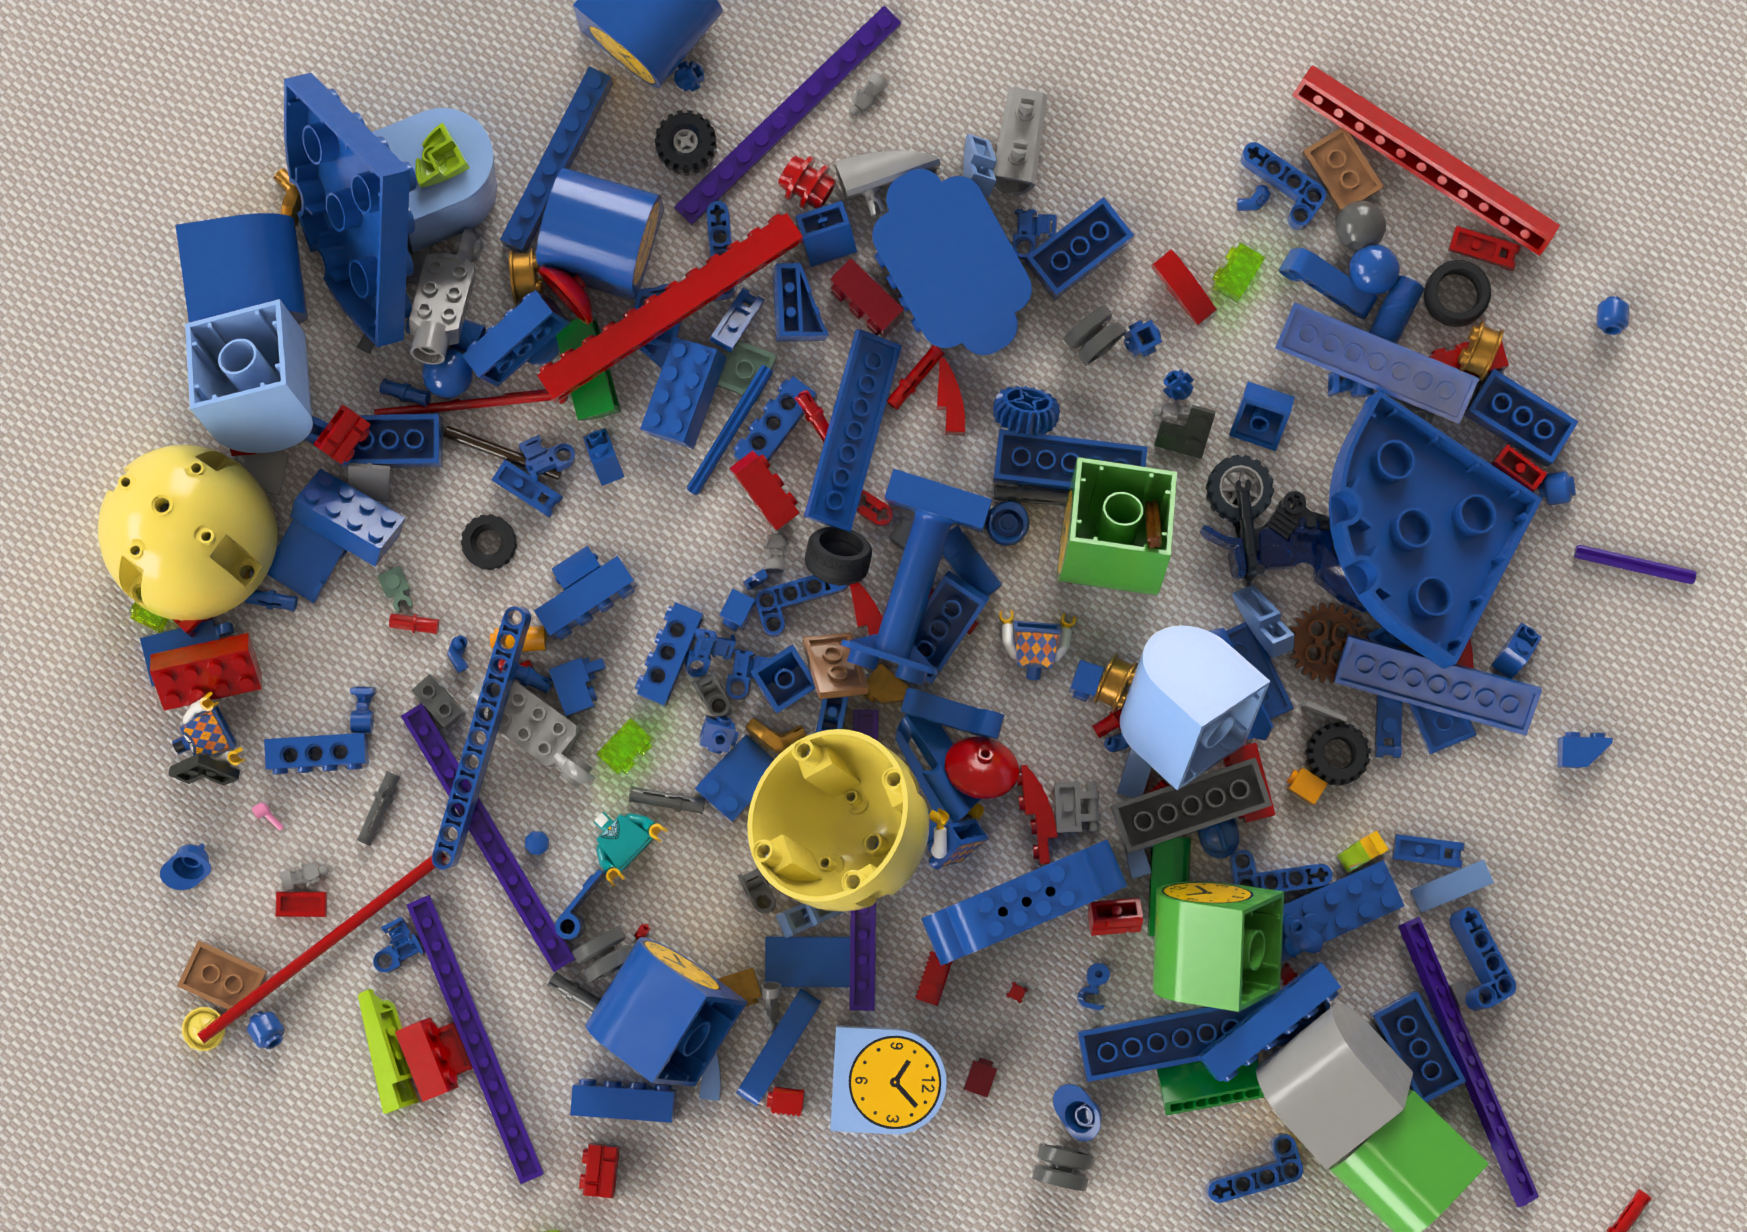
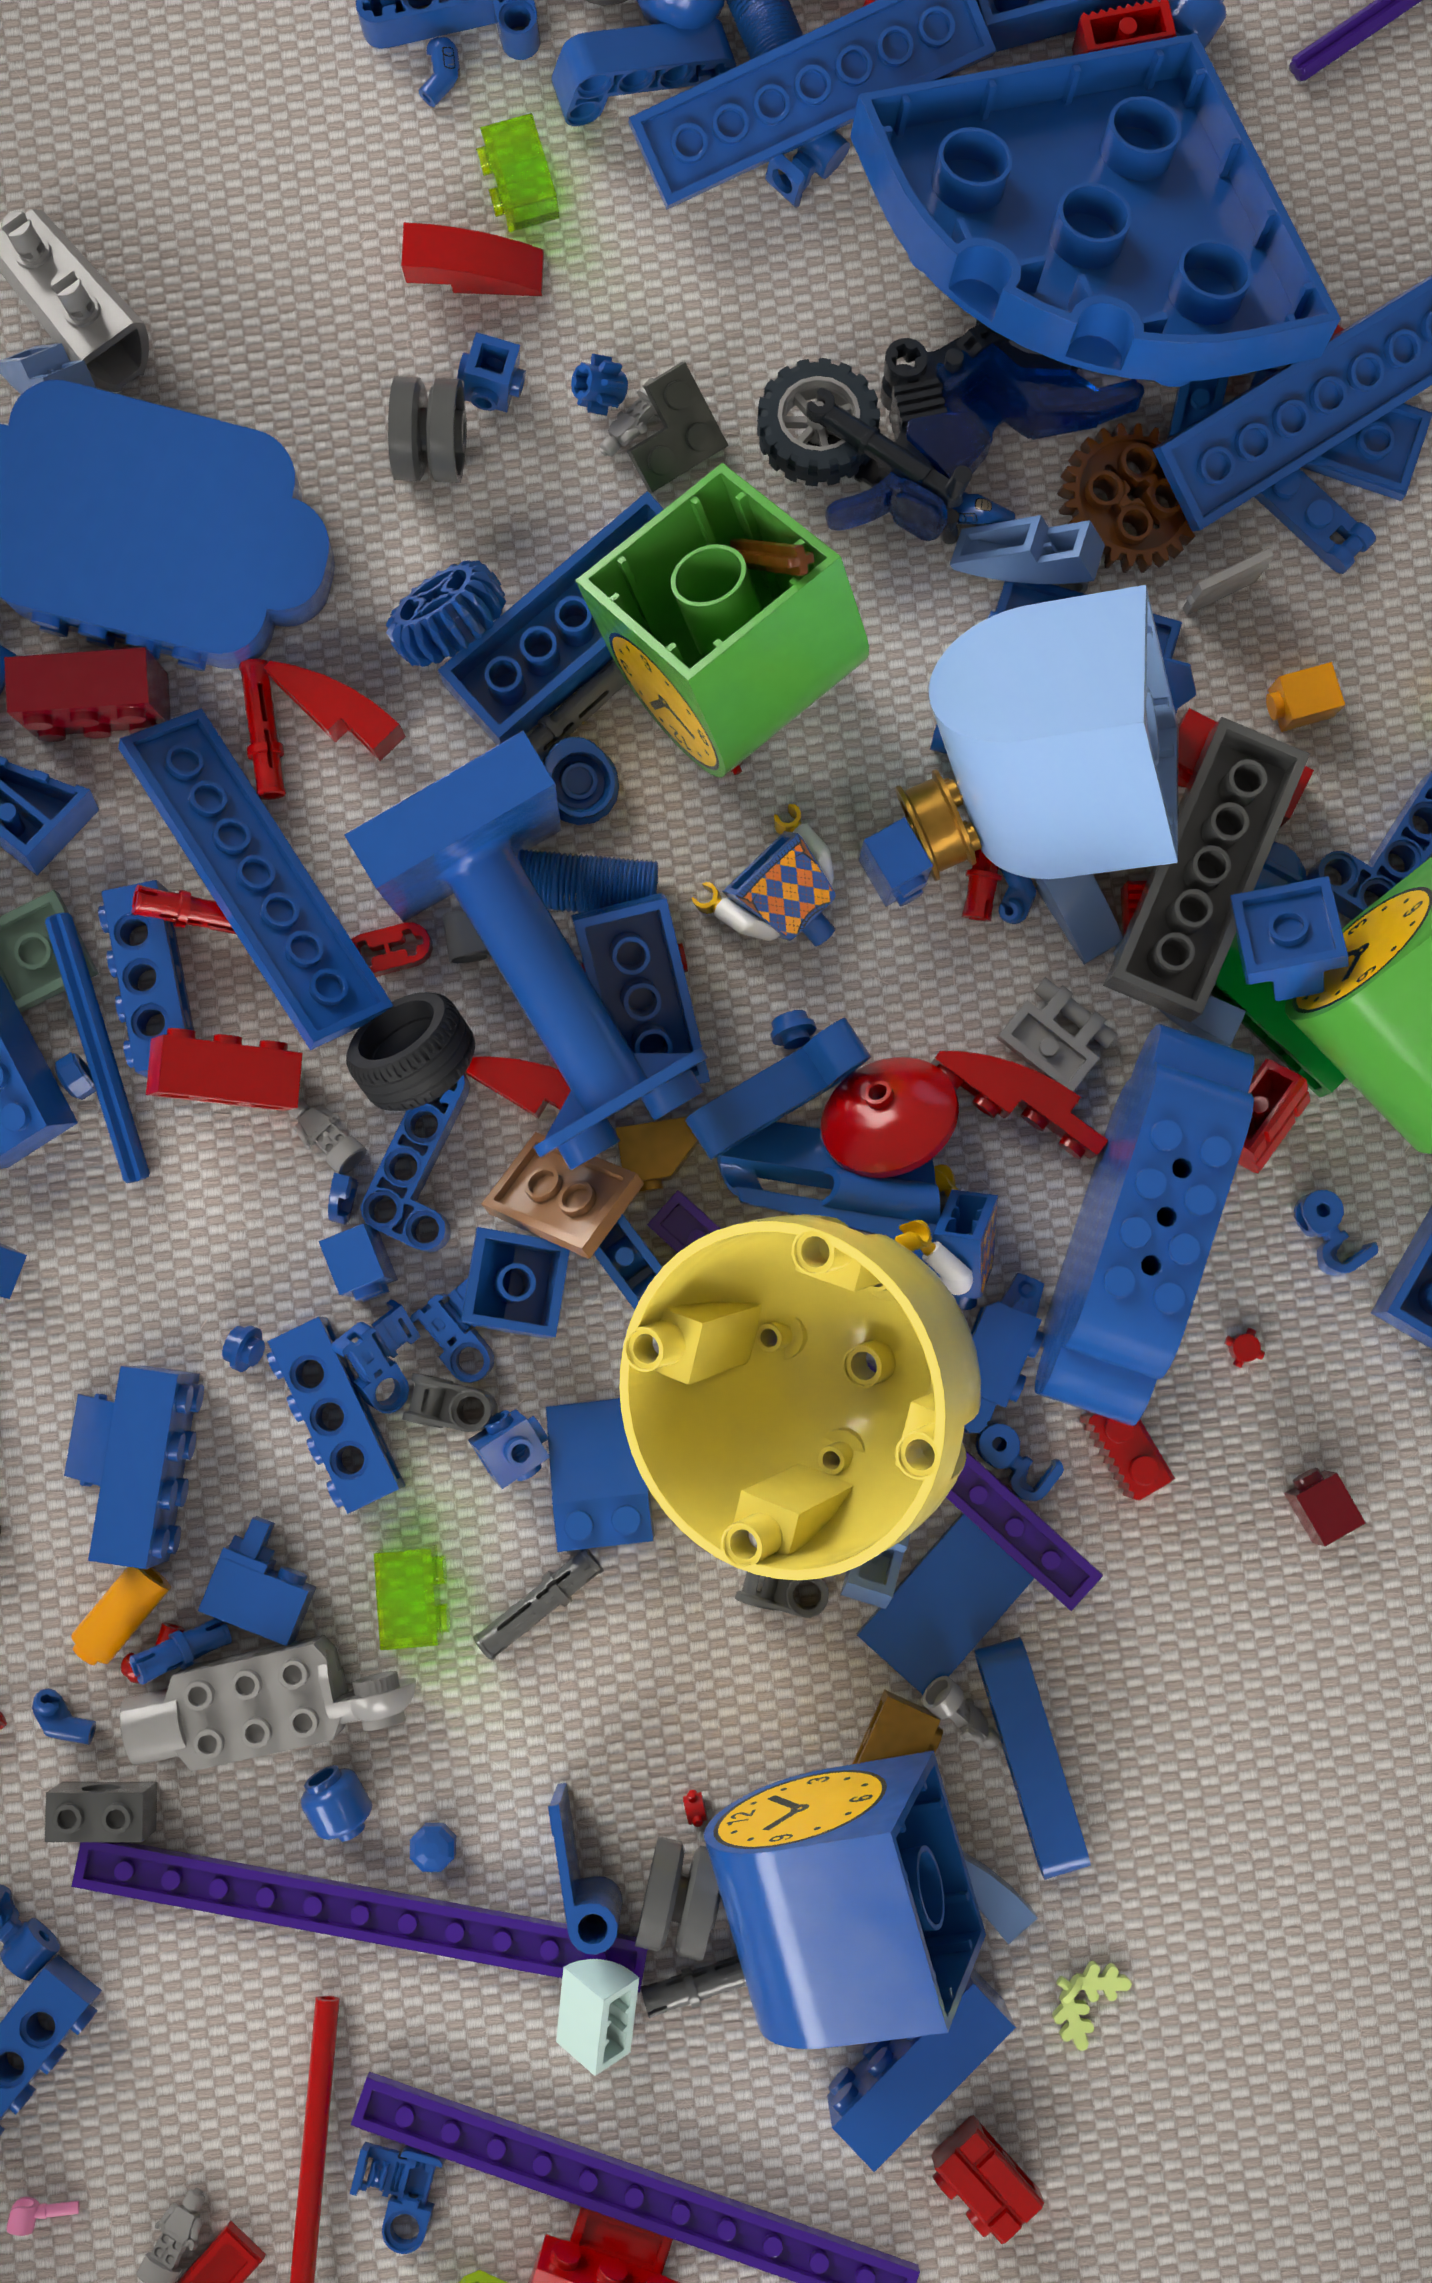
camera: 50 degrees left, 0 degrees up
(391, 781) = (168, 2021): dark grey pin -> none
(472, 746) = (203, 1827): blue beam -> none
(521, 789) = (336, 1803): none -> blue head
(532, 961) = (597, 2012): none -> light aqua brick
(623, 841) = (542, 1722): teal torso -> none
(663, 594) = (243, 1347): none -> blue plate
(710, 430) = (75, 1076): none -> blue tile
(718, 1155) = (1070, 2009): none -> yellowish green animal
(772, 739) = (587, 1375): pearl gold arm -> none
(786, 1101) = (1123, 1820): red brick -> none
(884, 1080) = (1231, 1656): brick -> none
(889, 928) = (1001, 1449): none -> blue leg
(927, 892) = (1003, 1339): none -> blue hinge
(983, 698) = (792, 1029): none -> blue plate
(1033, 227) = (206, 385): blue piece -> none
(1079, 248) = (290, 346): blue brick -> none
(1186, 859) = (1289, 936): none -> blue panel
(1261, 416) = (743, 313): blue slope -> none
(1265, 585) = (981, 510): none -> blue arm
(1358, 747) = (1320, 586): black tyre -> none
(1516, 651) = (1367, 260): blue slope -> none

